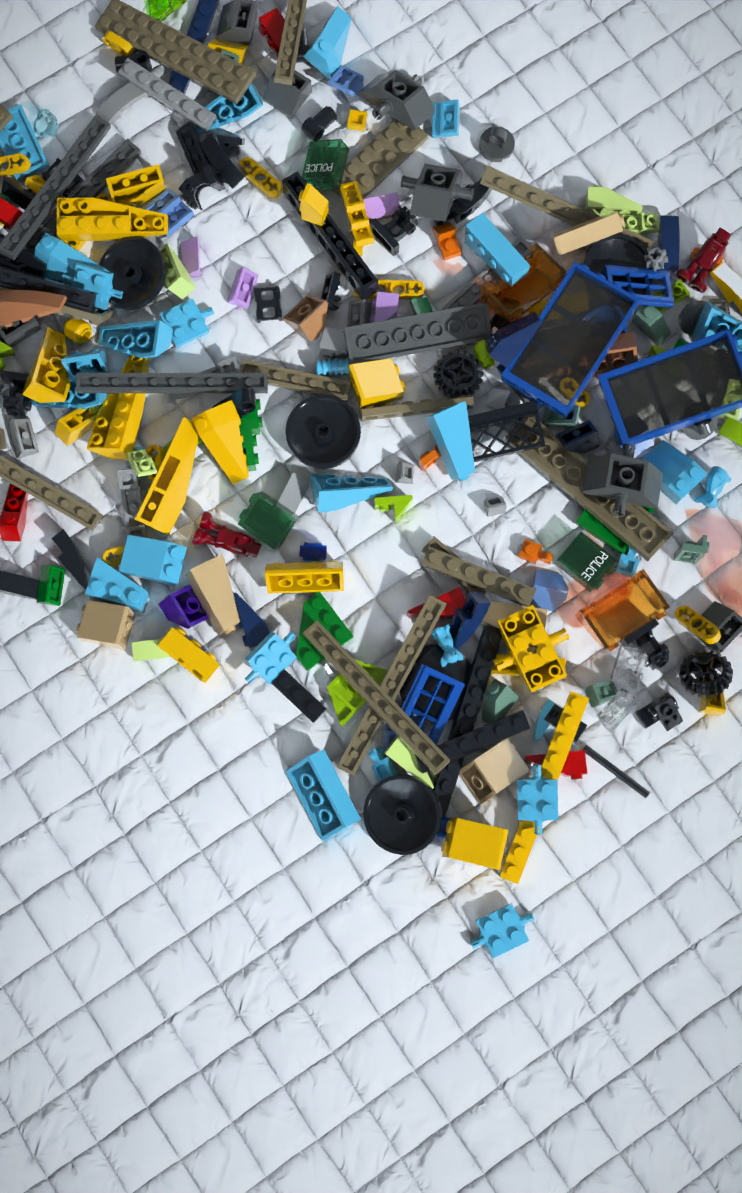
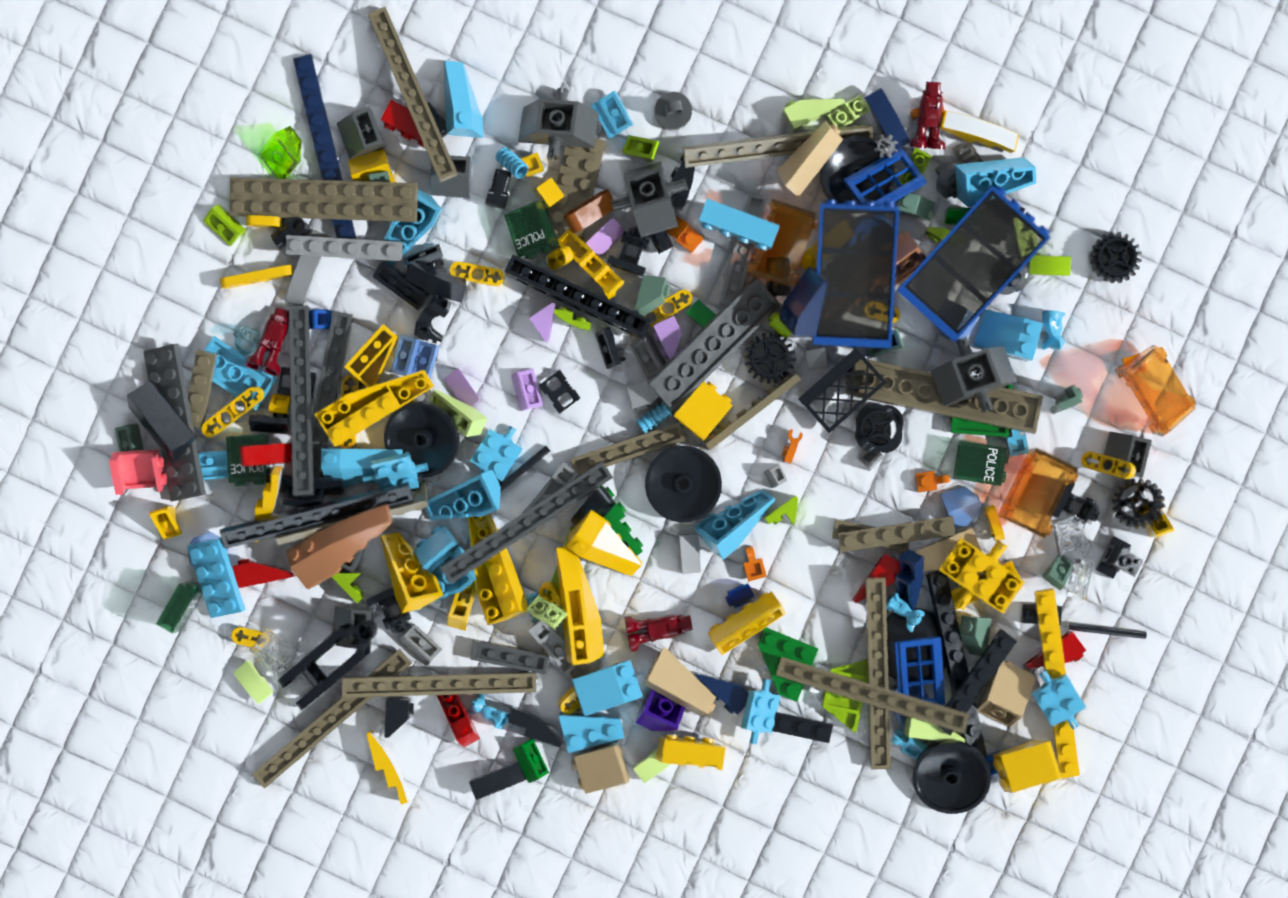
camera: 25 degrees left, 10 degrees up
(45, 531) = (496, 717): none -> medium azure animal
(62, 132) = (271, 341): none -> dark red piece
(77, 330) = (407, 522): yellow head -> none
(83, 80) = (256, 277): none -> yellow beam
(86, 31) = (224, 225): none -> lime slope
(89, 489) = (509, 657): none -> dark grey plate
(112, 140) = (320, 319): none -> blue slope
(196, 347) = (523, 468): none -> black bar
(267, 519) = (684, 592): clear green brick -> none
(291, 241) = (544, 320): none -> lavender slope
(308, 317) = (604, 383): medium nougat slope -> none
(312, 250) = (566, 316): none -> lime slope
(313, 205) = (552, 286): yellow slope -> none
(323, 795) = (874, 799): medium azure slope -> none
(335, 197) = (559, 258): none -> yellow beam
(340, 535) = (753, 567): none -> orange plate
(342, 107) = (512, 162): none -> medium azure piece
(347, 81) = (500, 132): medium blue slope -> none
(357, 145) = (548, 192): none -> yellow panel
(380, 176) = (589, 211): none -> dark orange beam
(391, 267) = (651, 294): none -> sand green slope
(425, 232) = (661, 241): none -> black piece
(453, 440) = (803, 424): medium azure slope -> none
(454, 154) = (640, 148): none -> lime slope
(502, 930) = (1088, 821): medium azure plate -> none
(512, 465) = (891, 443): none -> black piece
(541, 725) = (1023, 632): medium azure slope -> none
(569, 617) = (994, 523): none -> yellow beam
(580, 438) = (911, 356): black slope -> none

